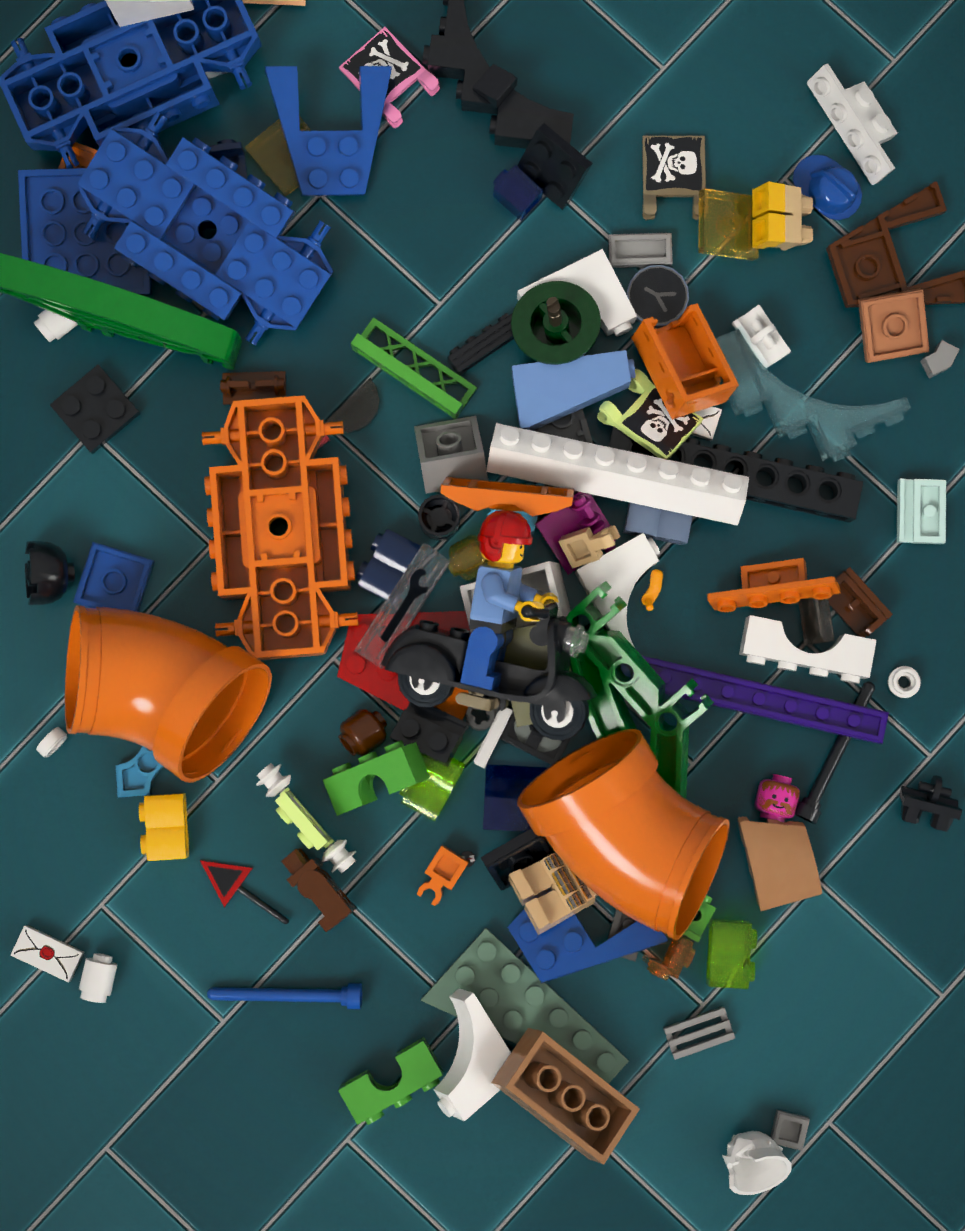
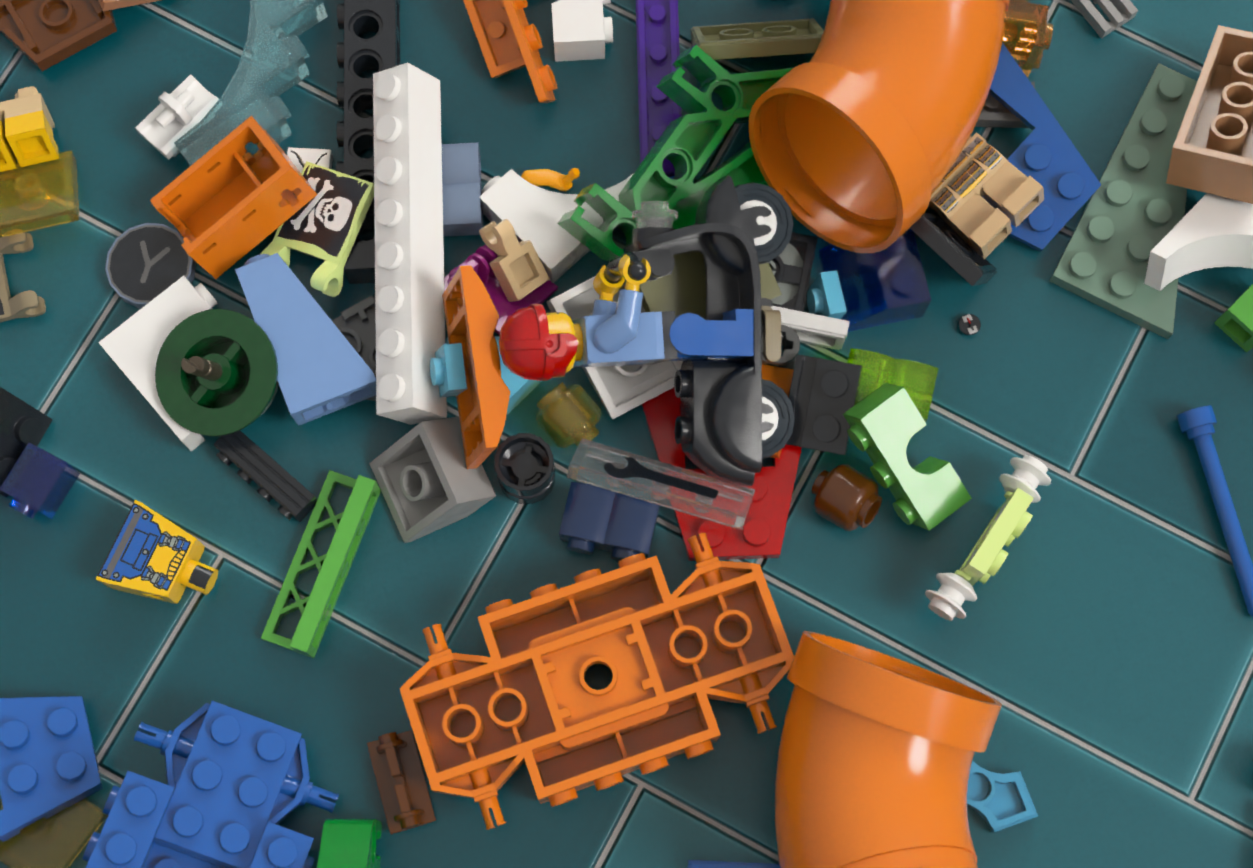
camera: 105 degrees left, 10 degrees down
(165, 827) = (1058, 734): yellow brick -> none
(228, 879) = (1099, 631): piece -> none
(319, 887) = (1078, 494): reddish brown hips -> none
(359, 408) = (397, 624): clear smoke tile -> none
(443, 870) = (995, 347): orange plate -> none
(444, 259) = (155, 558): none -> torso
(508, 759) = (826, 296): none -> medium azure plate
(512, 477) = (448, 370): none -> medium azure plate
(640, 250) = (89, 302): light grey tile -> none
(716, 763) = (758, 38): none -> olive tile

